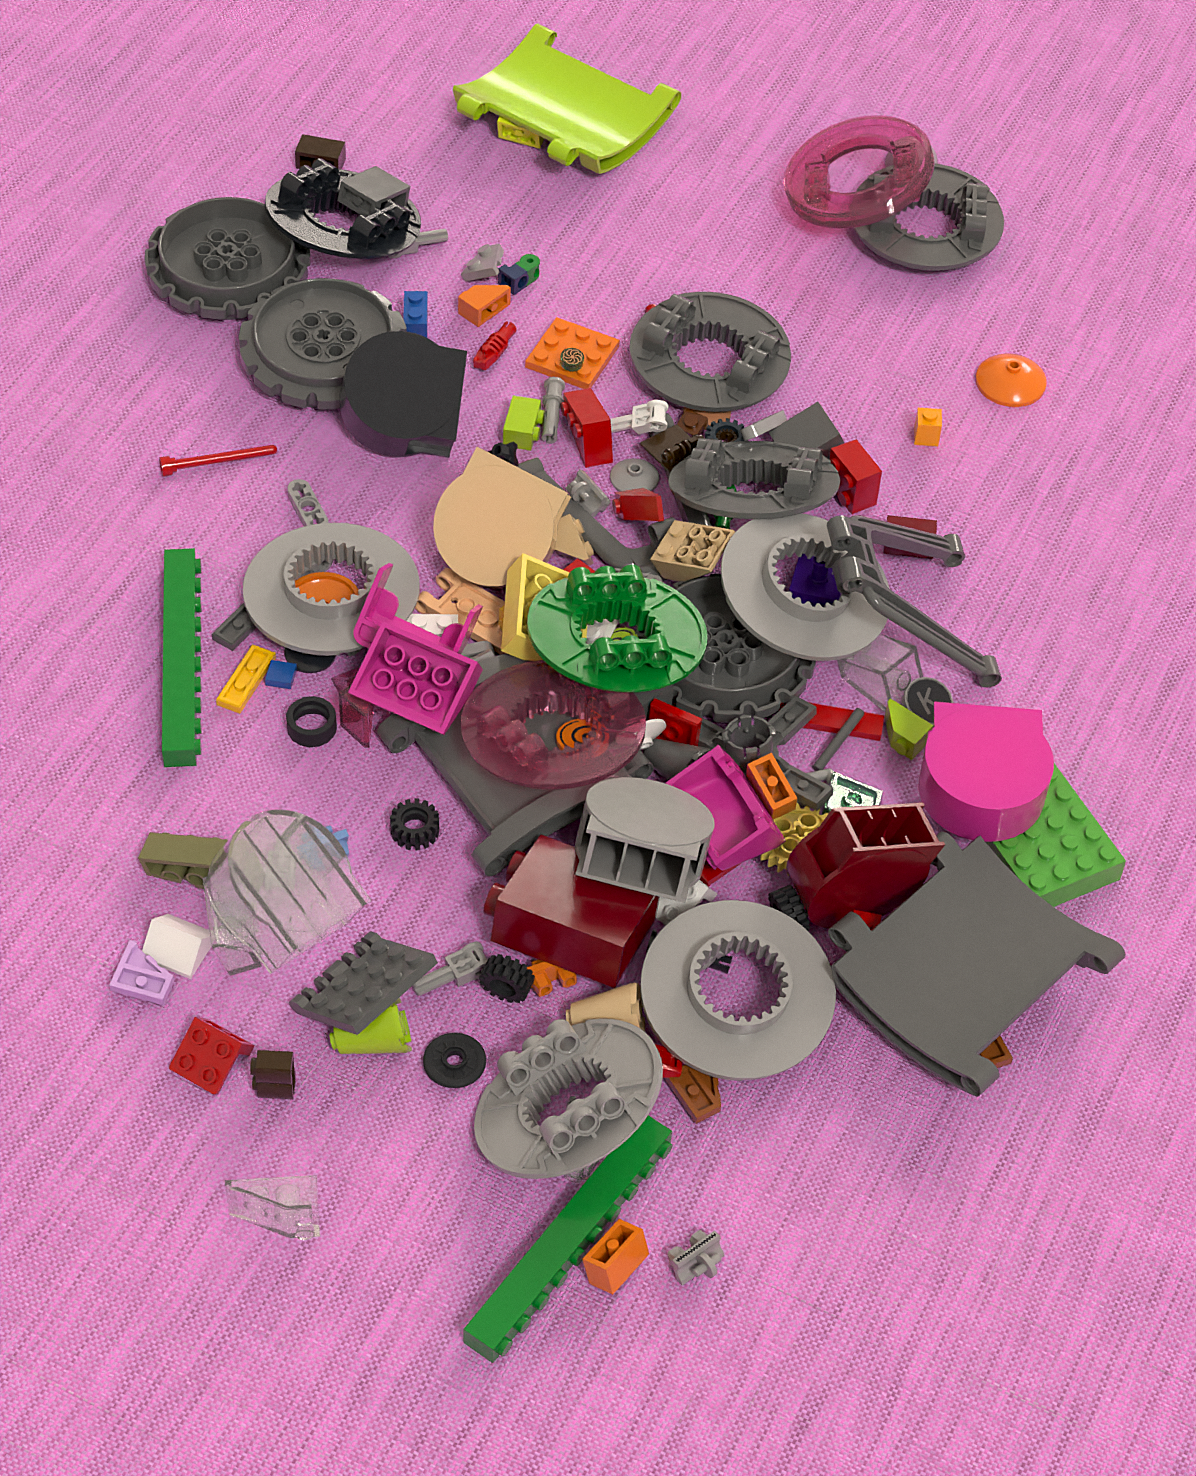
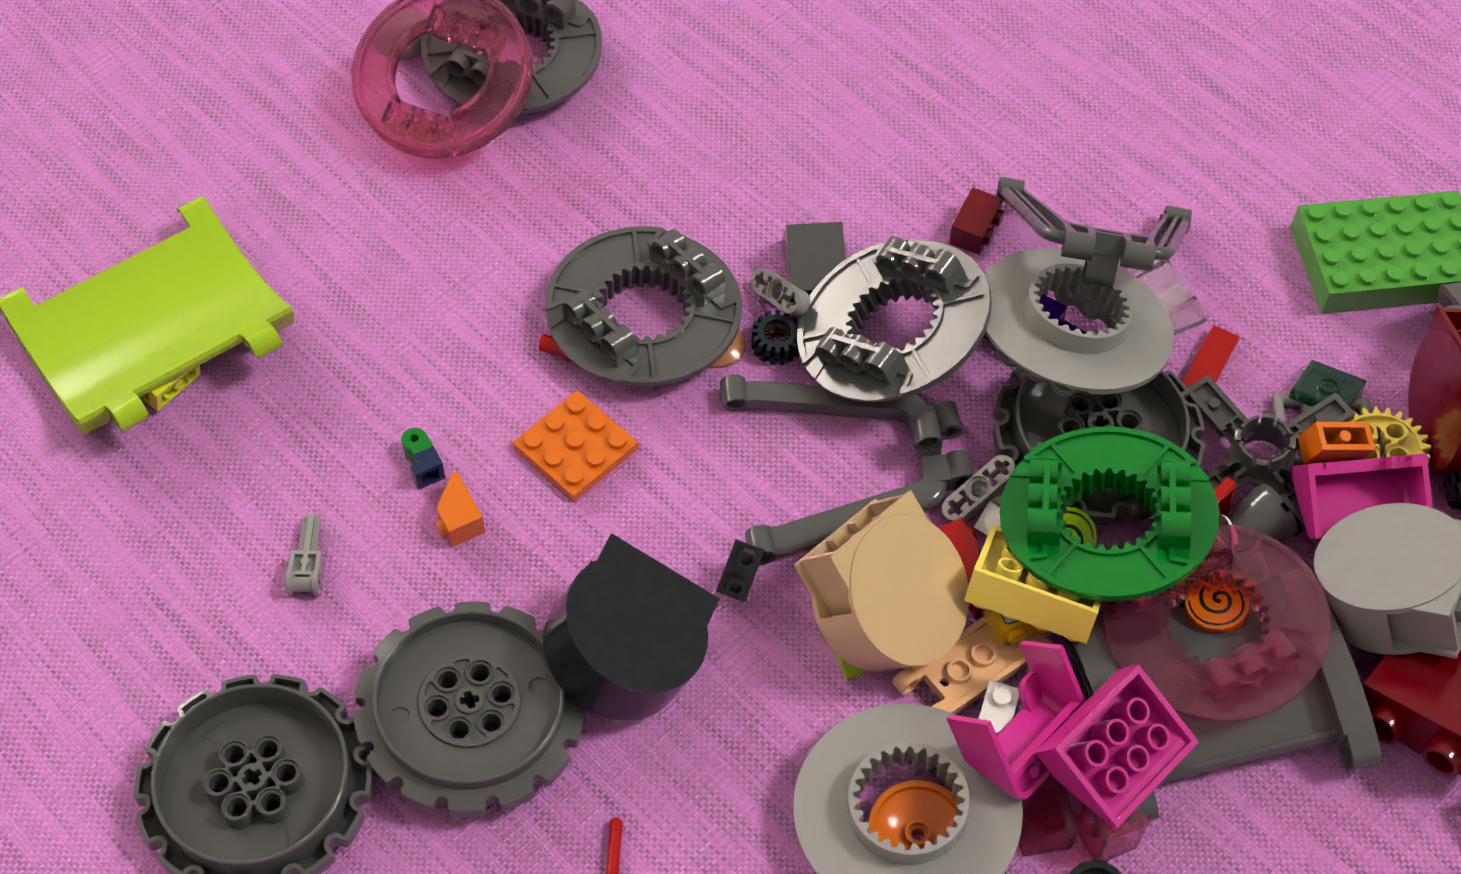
camera: 70 degrees left, 5 degrees up
(298, 196) = (193, 593): black piece -> none
(308, 499) = (711, 799): light grey beam -> none
(313, 148) = (94, 620): dark brown brick -> none
(370, 189) = (233, 569): panel -> none
(414, 811) = (1264, 833): black tyre -> none
(416, 312) = (446, 586): blue brick -> none
(484, 263) = (391, 488): light grey wing -> none
(494, 346) = (537, 522): red hinge -> none
(523, 422) = (679, 528): lime brick -> none
(551, 402) = (654, 486): light grey pin -> none
(571, 359) = (603, 444): tile -> none
(588, 494) = (821, 494): light grey hips -> none
(589, 426) = (711, 460): red wedge -> none
(634, 474) = (791, 453): light grey dish -> none
(638, 505) = (871, 444): red slope -> none
(643, 419) = (733, 401): white connector -> none
(670, 446) = (787, 386): dark brown hinge -> none
(690, 550) = (988, 405): tan slope -> none
(692, 422) = (739, 361): reddish brown plate -> none
(838, 740) = (1240, 374): dark grey bar -> none
(858, 476) = (879, 223): red brick -> none
(905, 730) = (1240, 312): lime slope -> none
(922, 694) = (1209, 281): black tile -> none
(927, 426) = (825, 152): light orange brick -> none
(985, 770) = (1360, 252): dark pink brick -> none
(1011, 380) = (770, 65): orange dish -> none

